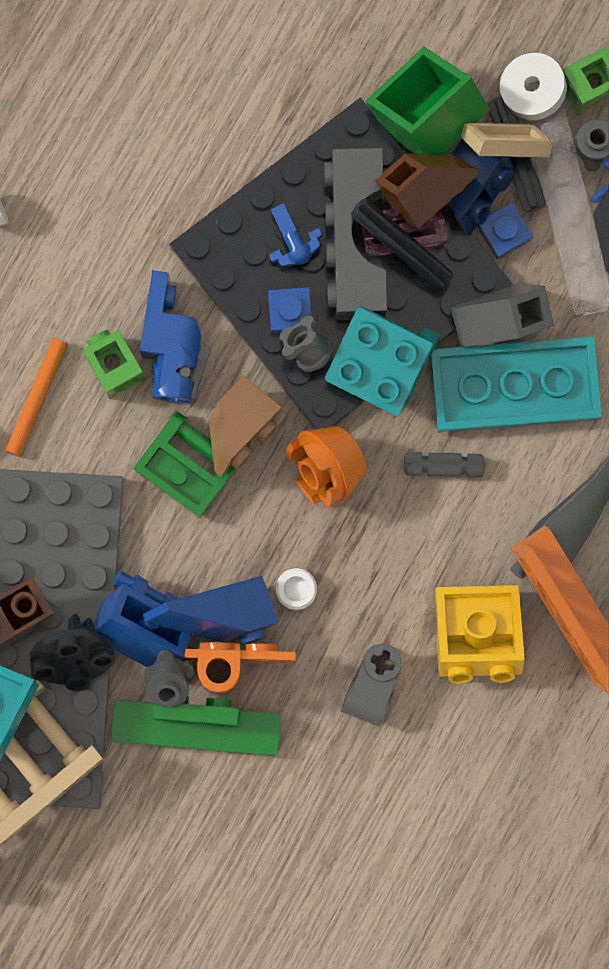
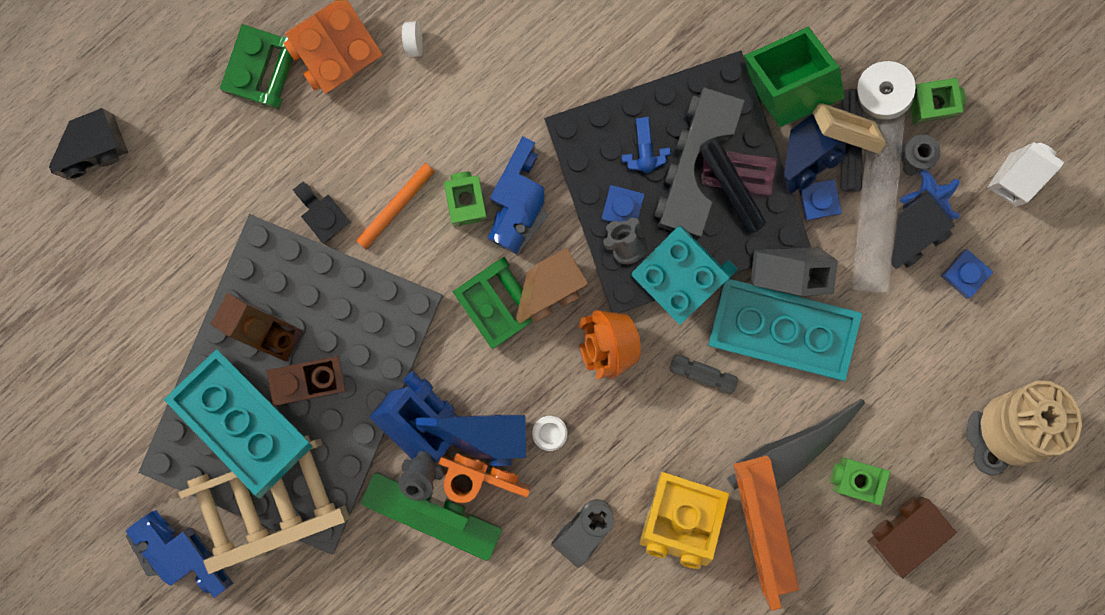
camera: 25 degrees right, 5 degrees up
(72, 655) = (349, 430): black plate -> none
(423, 184) = (768, 142): reddish brown slope -> none

